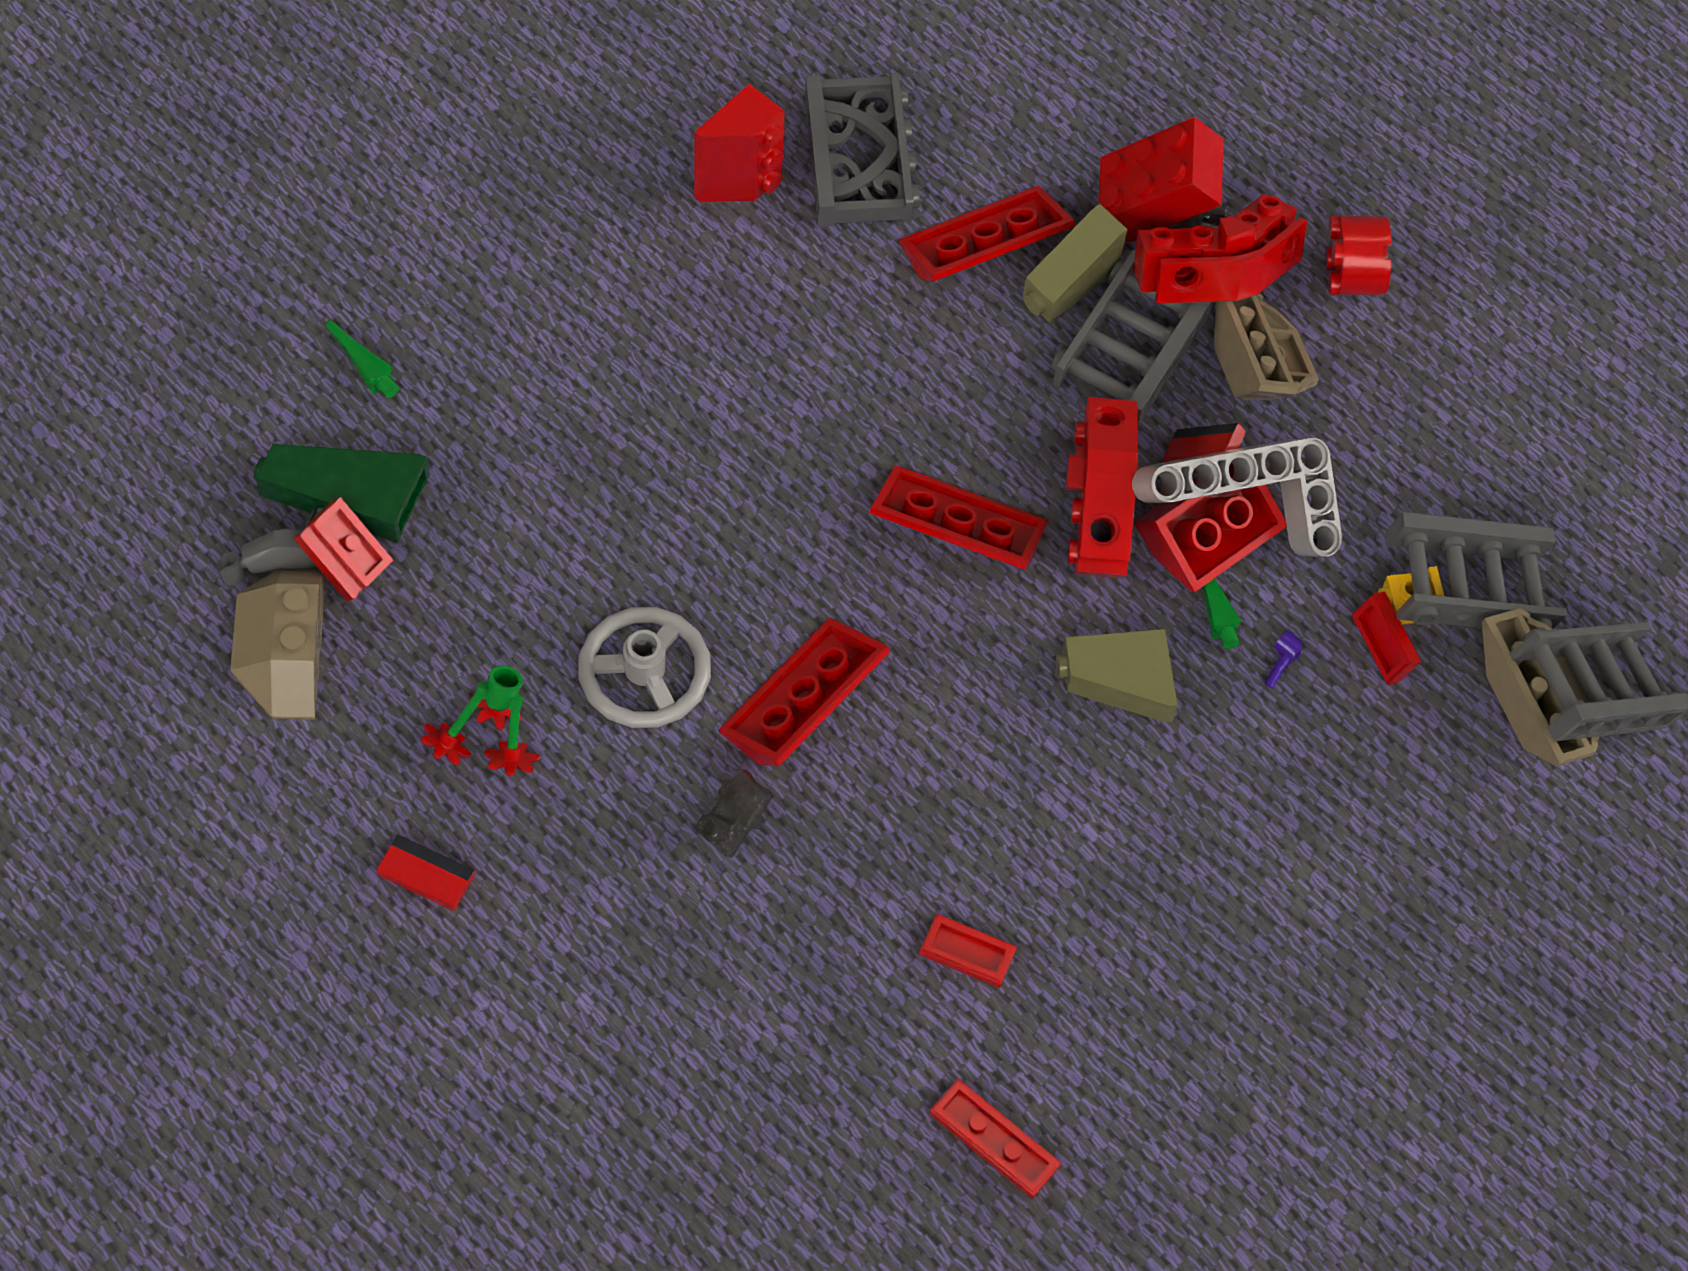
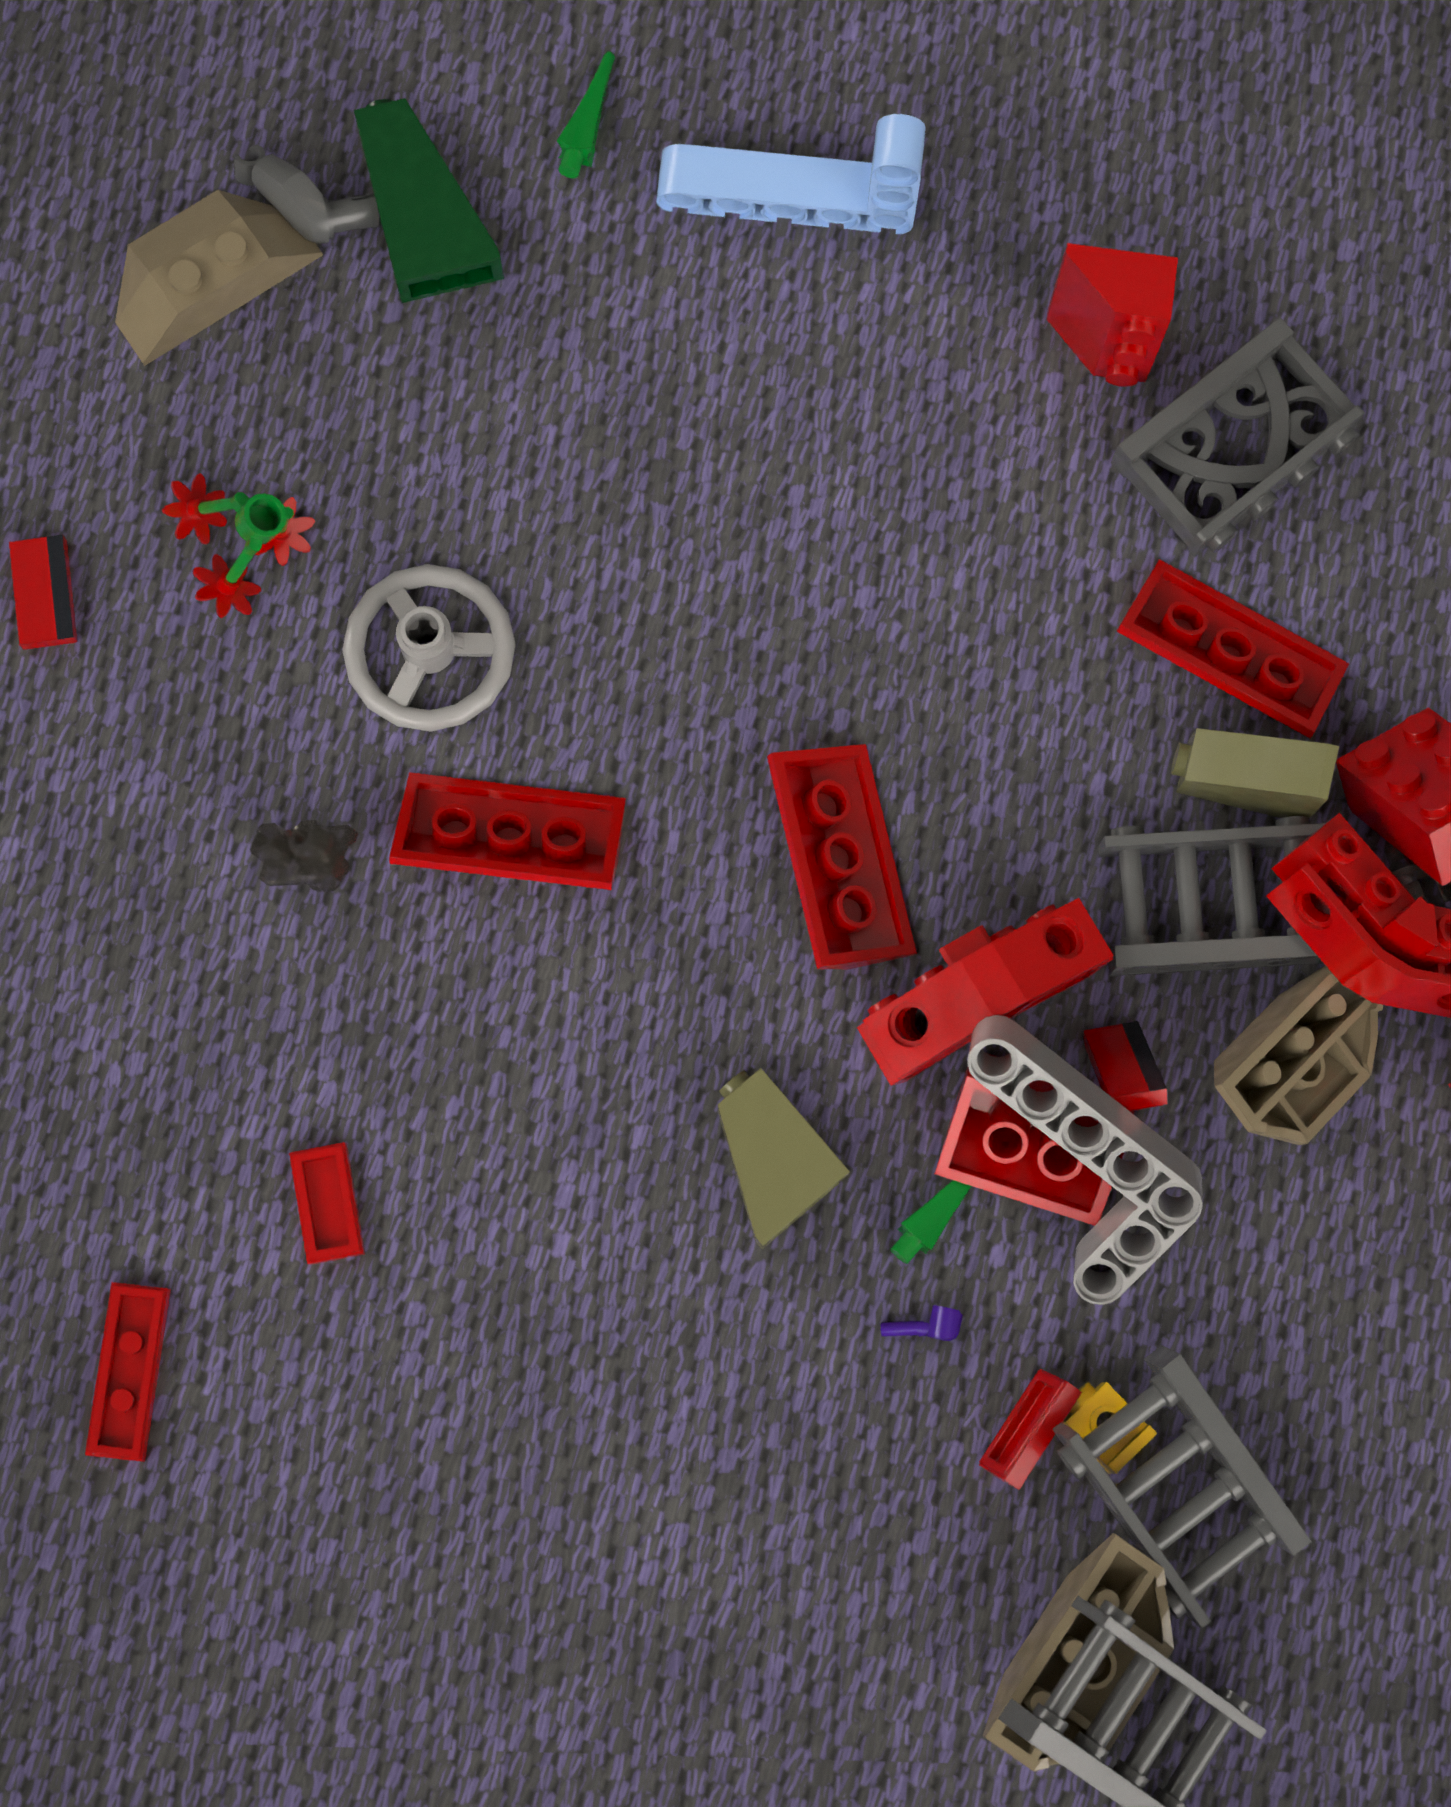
camera: 60 degrees right, 15 degrees up
(343, 549) = (337, 253): plate -> none
(519, 266) = (802, 187): none -> light blue beam

